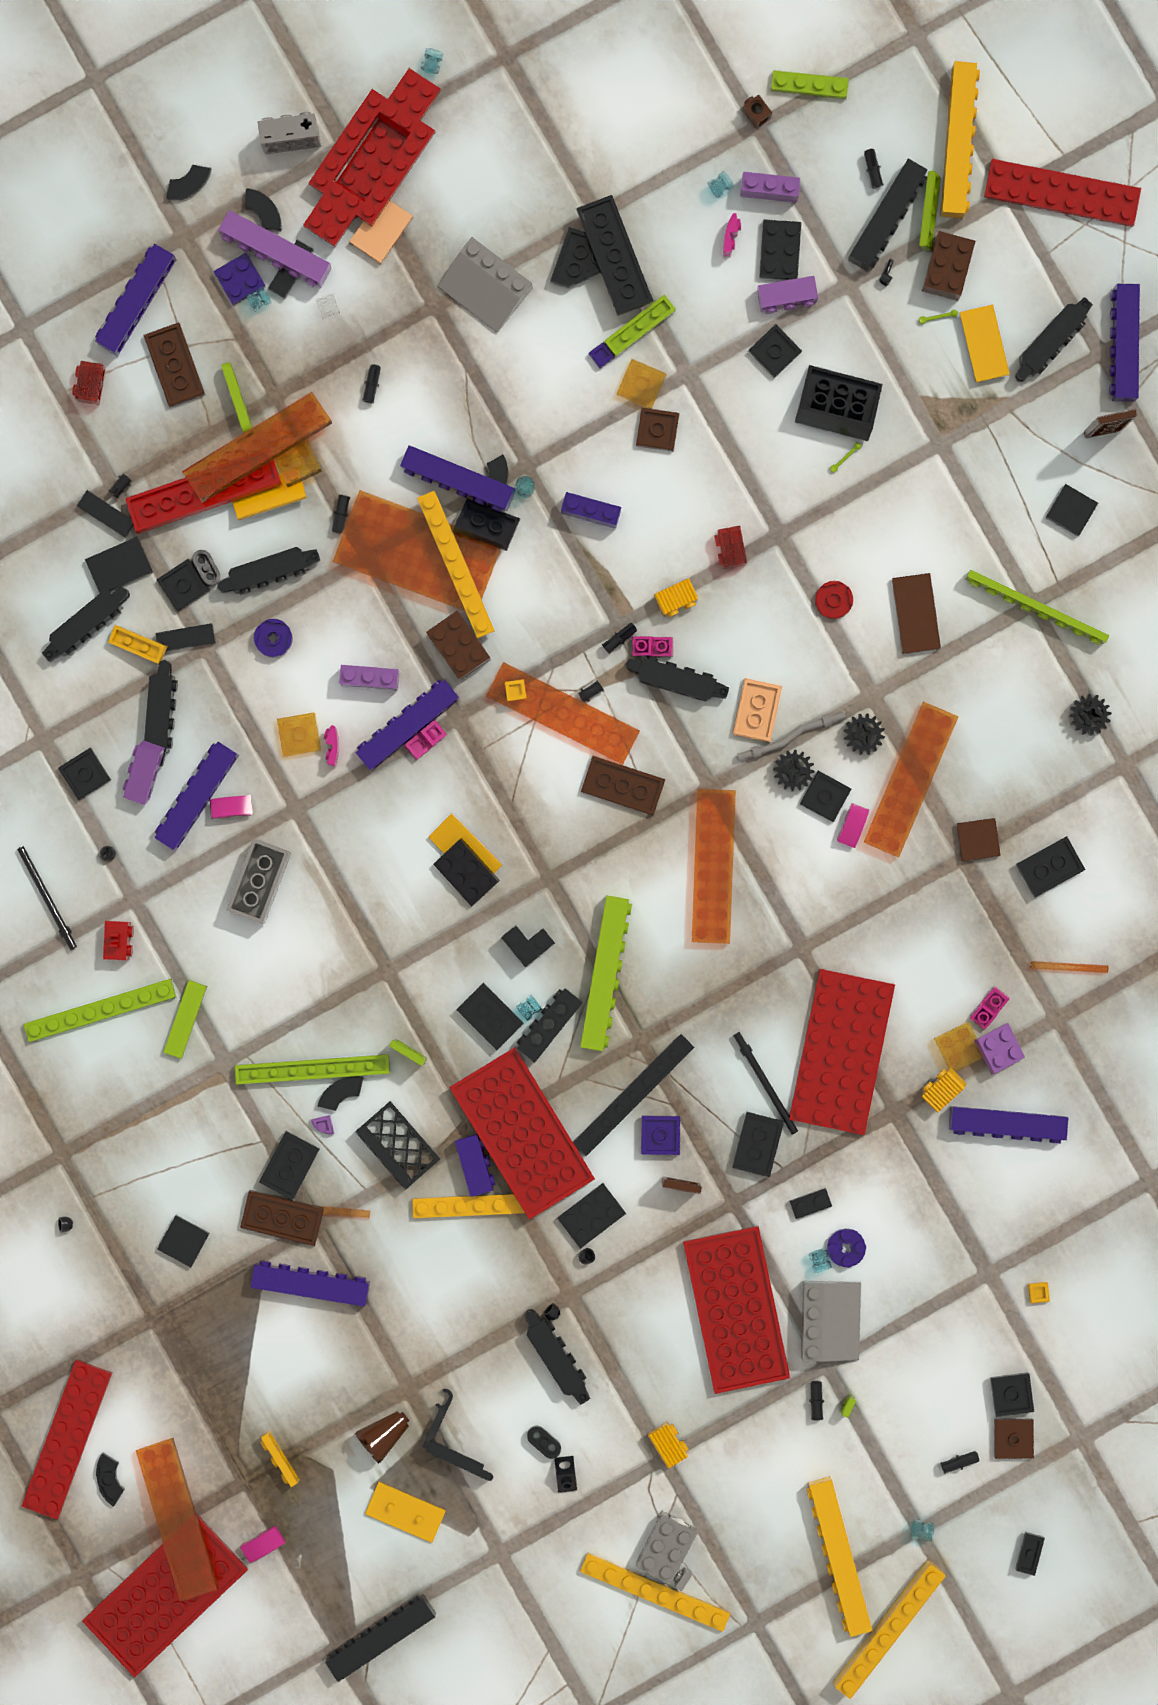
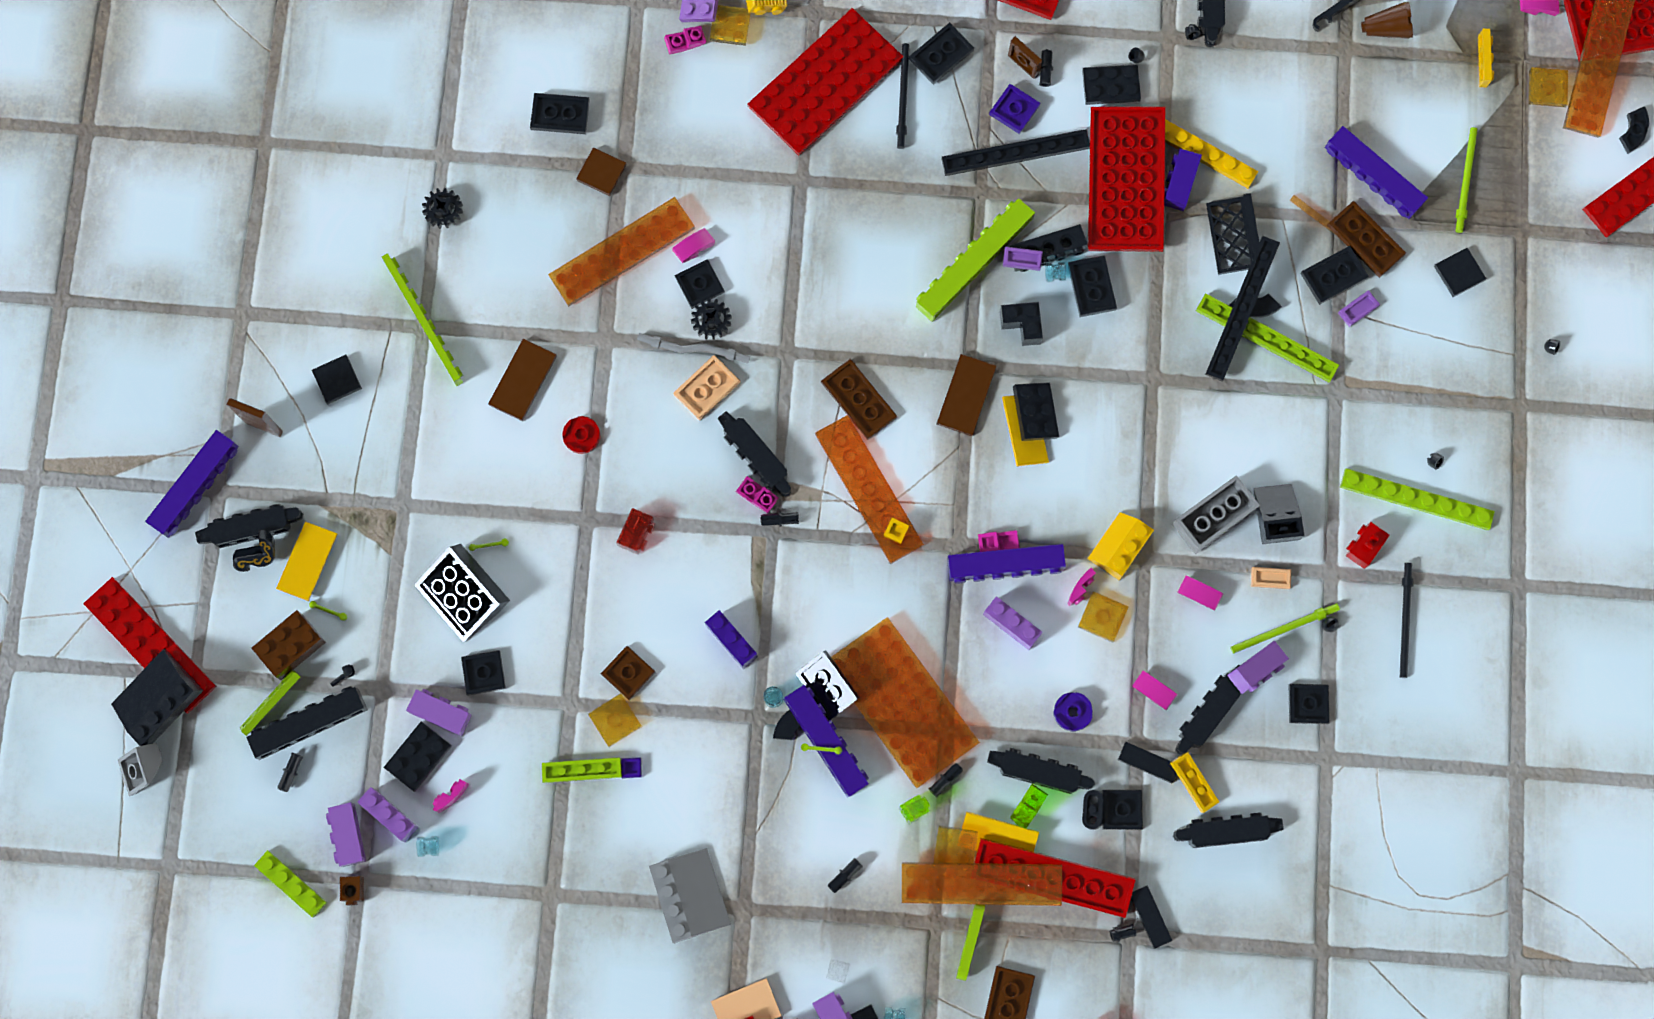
camera: 150 degrees left, 10 degrees down
(104, 1054) = (1435, 461): none -> black hinge
(119, 565) = (1167, 863): black tile -> none
(121, 855) = (1318, 614): none -> lime bar
(180, 860) = (1270, 578): none -> light nougat tile
(185, 1019) = (1348, 446): lime tile -> none
(196, 796) = (1223, 621): dark purple brick -> none
(208, 918) = (1278, 514): none -> slope
(208, 1469) = (1548, 87): none -> clear yellow plate
(214, 1298) = (1461, 213): none -> lime bar
(217, 699) = (1154, 690): none -> dark pink slope
(250, 1149) = (1359, 308): none -> medium lavender tile
(259, 535) = (1028, 806): none -> clear neon green slope
(322, 803) = (1120, 544): none -> yellow slope
(323, 1124) = (1285, 290): medium lavender tile -> none
(348, 1078) = (1242, 308): none -> black plate
(349, 471) = (914, 809): none -> clear neon green slope
(408, 1052) = (1179, 297): lime tile -> none
(455, 564) = (876, 669): yellow plate -> none
(458, 645) = (919, 600): reddish brown brick -> none
(470, 459) = (838, 750): none -> lime hinge
(534, 849) = (966, 395): none -> reddish brown tile
(563, 996) = (1022, 258): none -> medium lavender tile
(575, 260) = (588, 862): black plate -> none
(590, 691) = (834, 491): black pin -> none
(614, 255) = (561, 843): black plate -> none
(658, 1192) = (1046, 68): none -> black axle
(676, 597) = (710, 520): yellow brick -> none
(713, 866) = (828, 287): clear orange plate -> none
(792, 149) = (346, 835): none -> medium lavender brick
(872, 732) = (641, 313): black gear -> none
(959, 139) = (200, 748): yellow brick -> none
(995, 91) = (140, 767): none -> light grey slope
(1024, 151) = (155, 698): none -> black slope
(1027, 319) = (258, 555): none -> black animal
(1069, 967) = (598, 29): clear orange bar -> none

